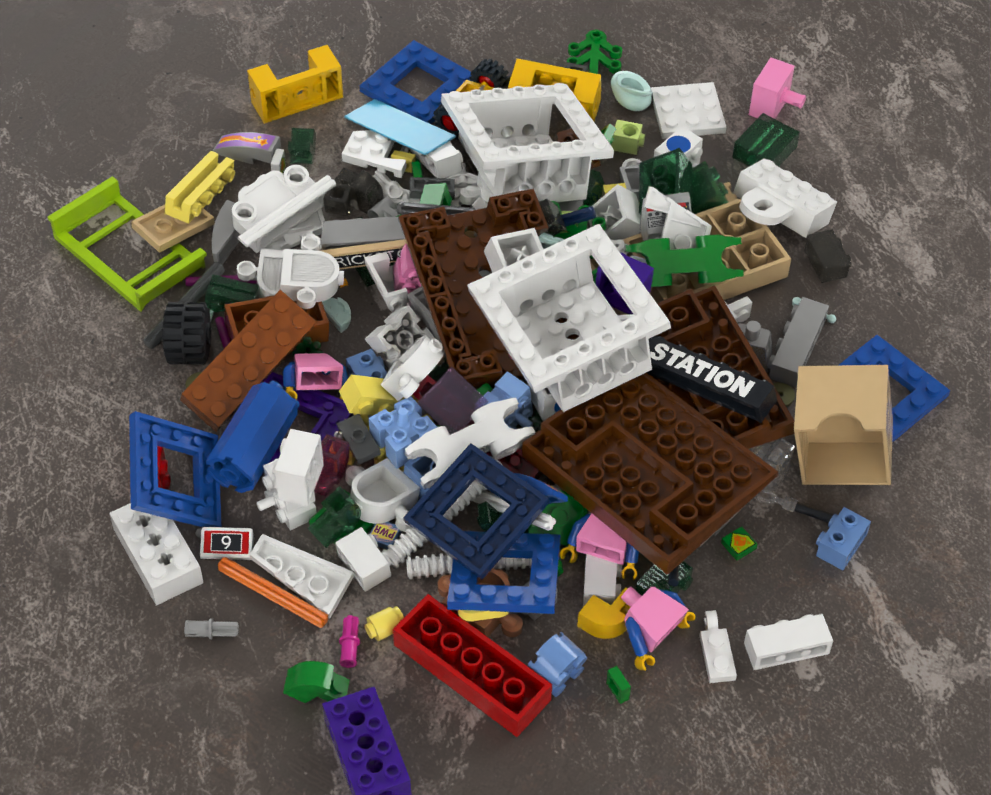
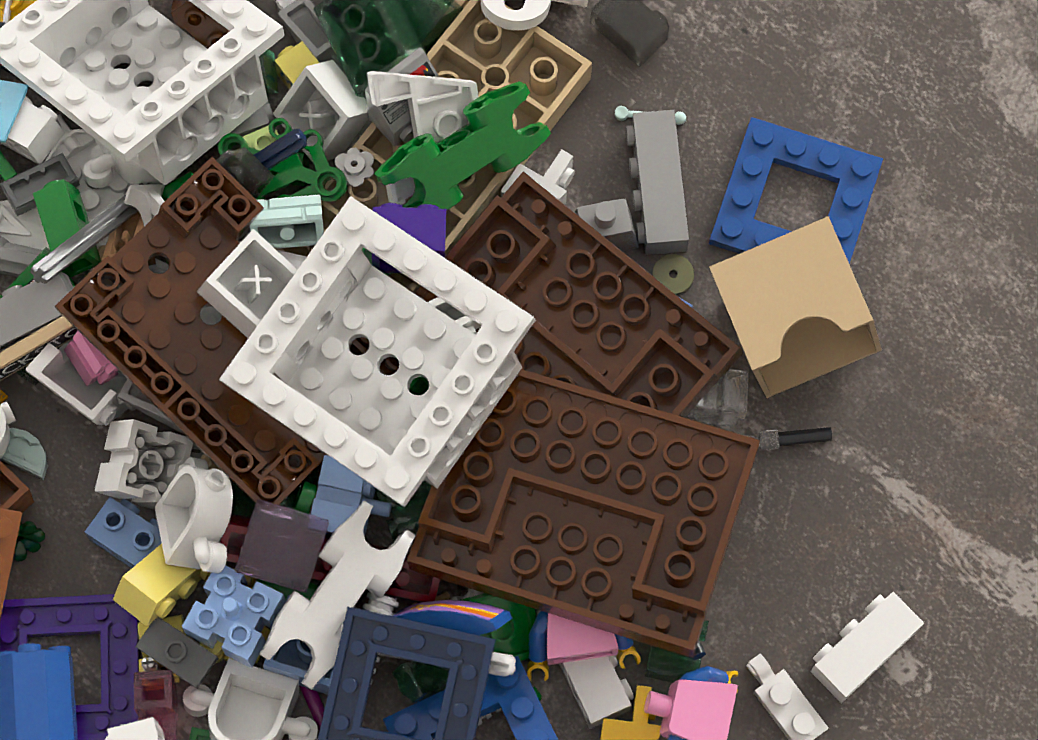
camera: 30 degrees left, 20 degrees up
(313, 372) = (56, 577): bright pink torso -> none
(711, 379) = (613, 340): black brick -> none
(739, 543) = (742, 534): tile -> none
(842, 538) = (859, 459): medium blue brick -> none

